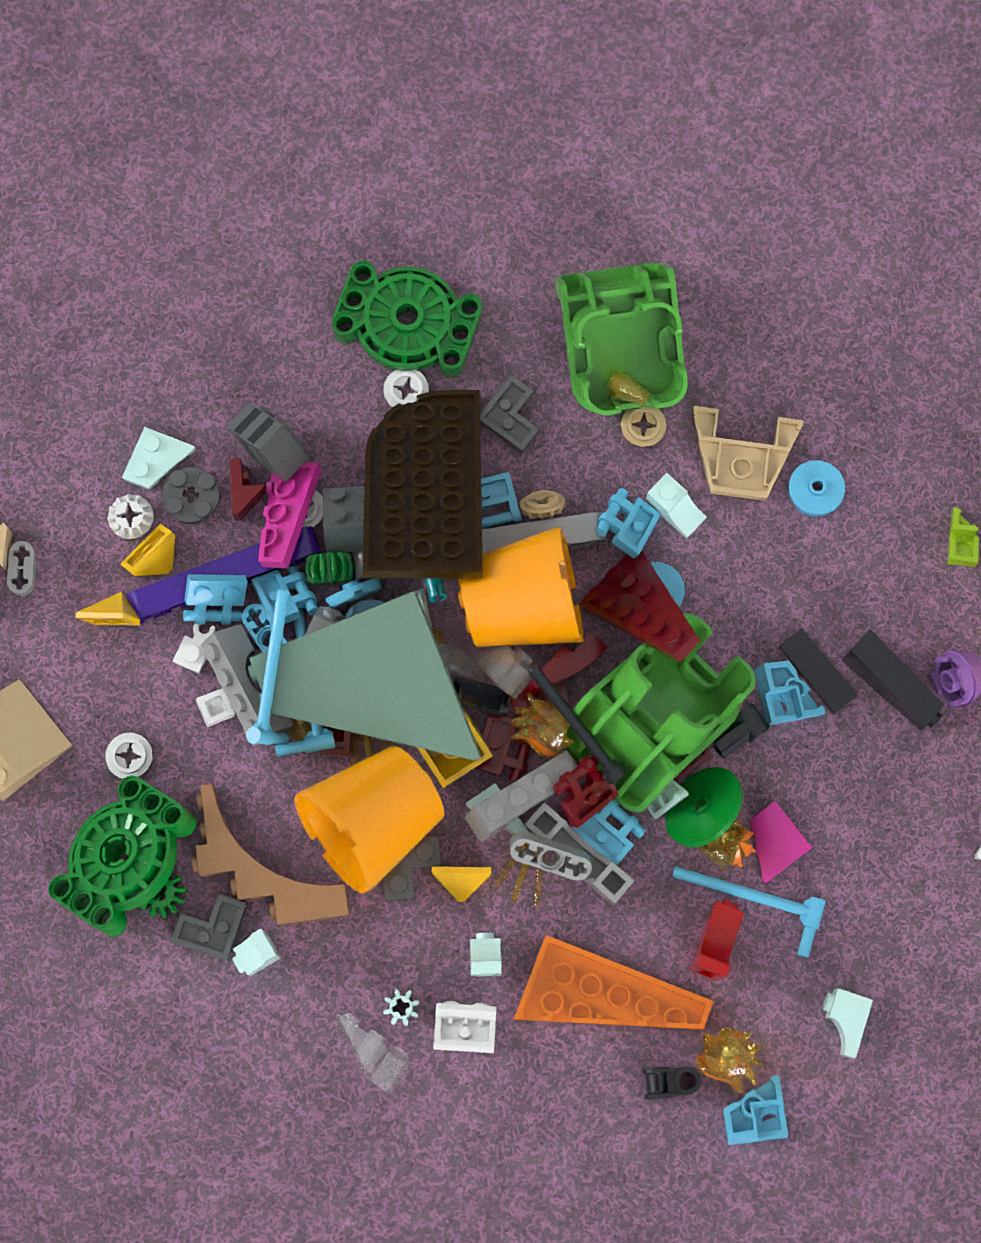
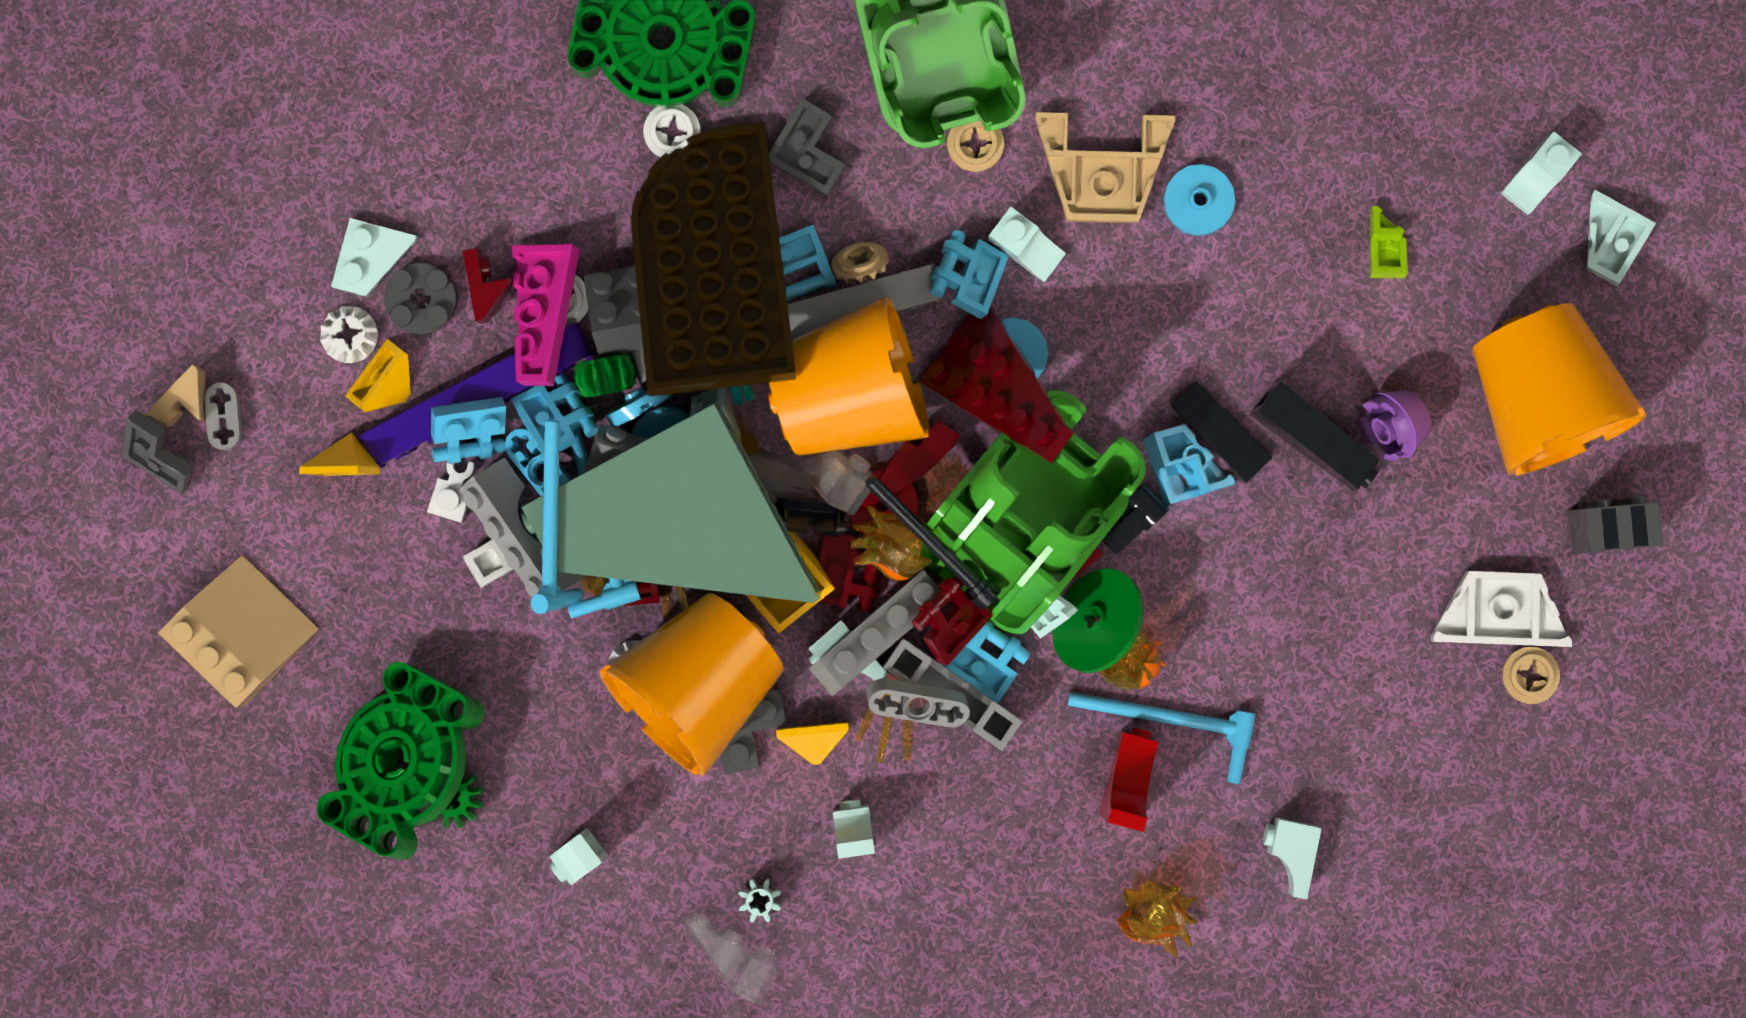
camera: 10 degrees left, 10 degrees up
(120, 745) = (378, 623): white gear -> none
(213, 936) = (526, 841): dark grey plate -> none
(222, 855) = (522, 742): medium nougat arch -> none
(268, 441) = (508, 223): dark grey brick -> none
(465, 1027) = (838, 915): white bracket -> none
(590, 989) = (984, 852): orange wing -> none
(627, 388) = (950, 105): clear yellow cone -> none
(668, 1082) = (1088, 951): black piece -> none
(745, 1117) = (1182, 980): medium azure slope -> none
(776, 841) = (1189, 648): dark pink slope -> none

